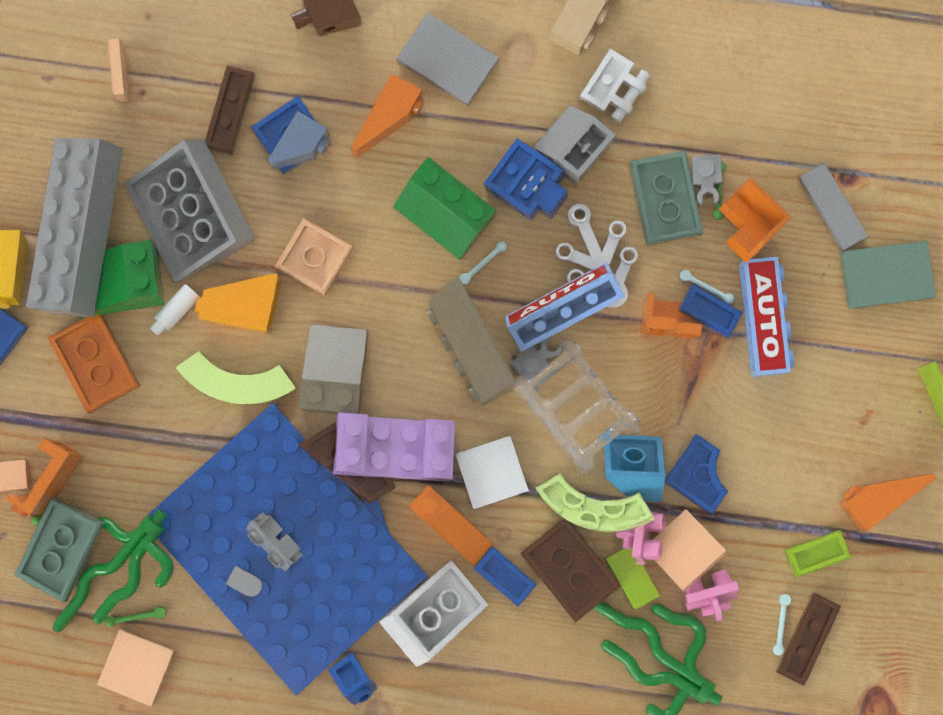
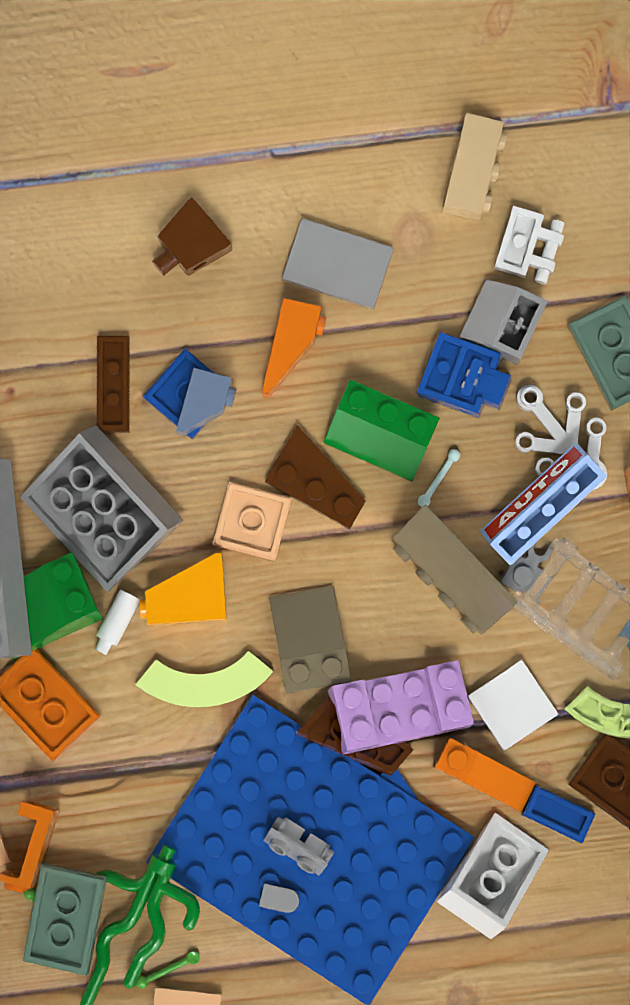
camera: 20 degrees left, 0 degrees up
(352, 679) = (425, 972): blue bracket -> none
(376, 237) = (314, 481): none -> reddish brown wing

